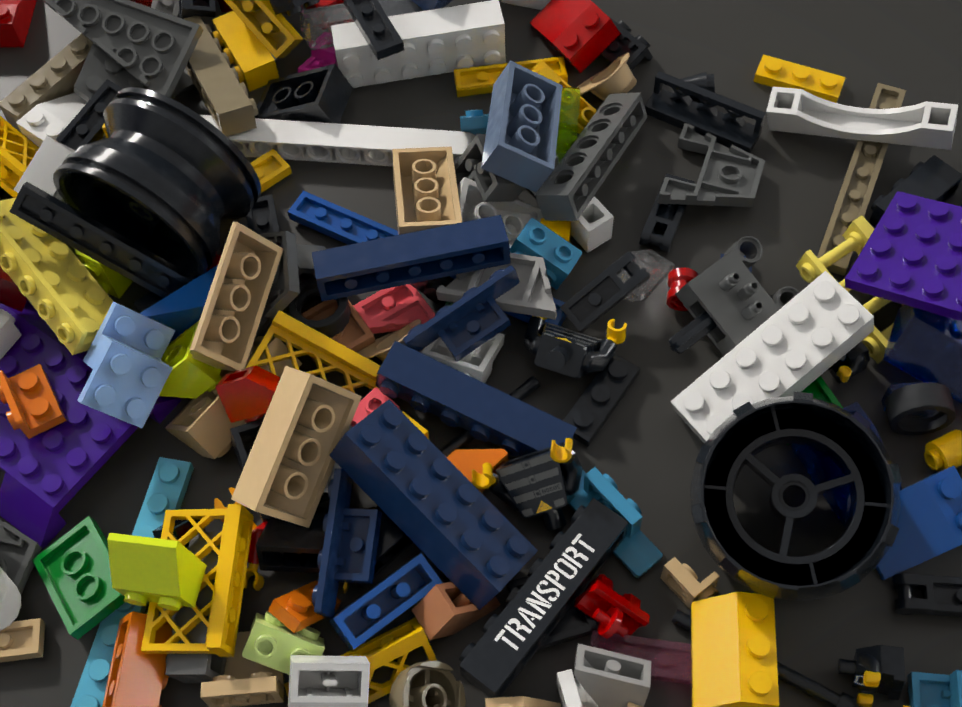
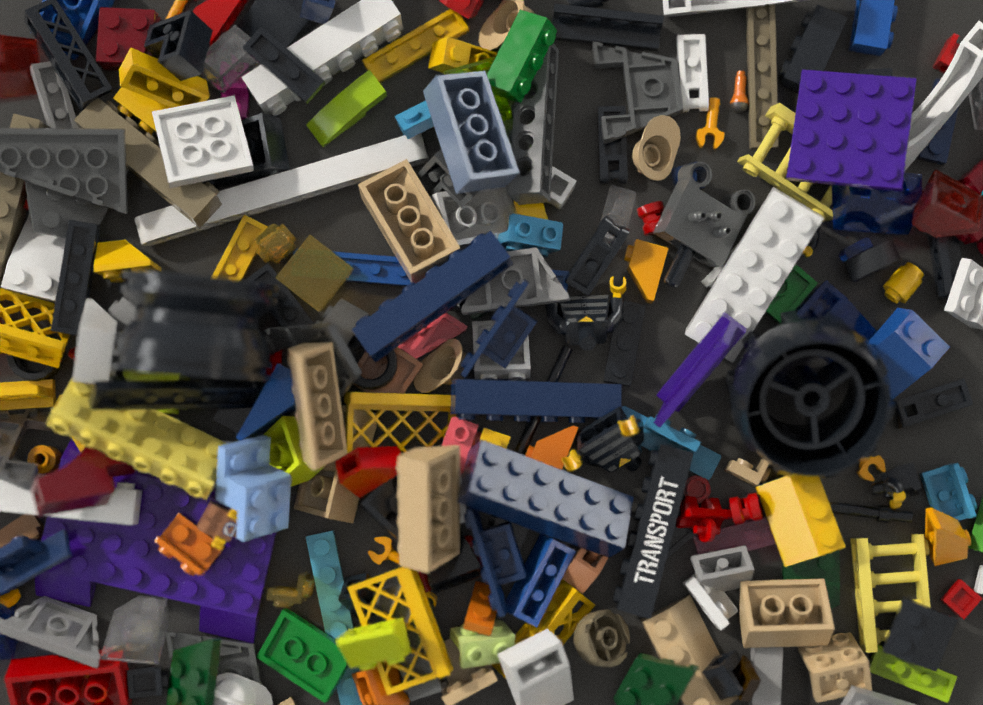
camera: 30 degrees left, 25 degrees up
(68, 384) = (219, 524): none -> nougat piece
(116, 502) = (286, 596): none -> clear yellow bracket
(265, 65) = (202, 141): none -> white plate
(287, 179) = (275, 243): none -> clear yellow head
(311, 213) = (314, 273): none -> clear yellow tile
(419, 98) = (346, 108): none -> lime slope
(604, 94) = (521, 55): none -> green brick
(623, 579) = (697, 487): none -> red plate
(653, 328) = (646, 266): none -> light orange slope
(669, 622) = (746, 508): none -> red wheel
(670, 434) = (698, 366): none -> dark purple fence
(713, 223) = (657, 148): none -> tan piece
(777, 178) = (693, 71): none -> white plate
(778, 234) = (711, 126): none -> light orange bar
(819, 219) = (739, 101): none -> orange piece
(840, 631) = (864, 463): none -> light orange bar

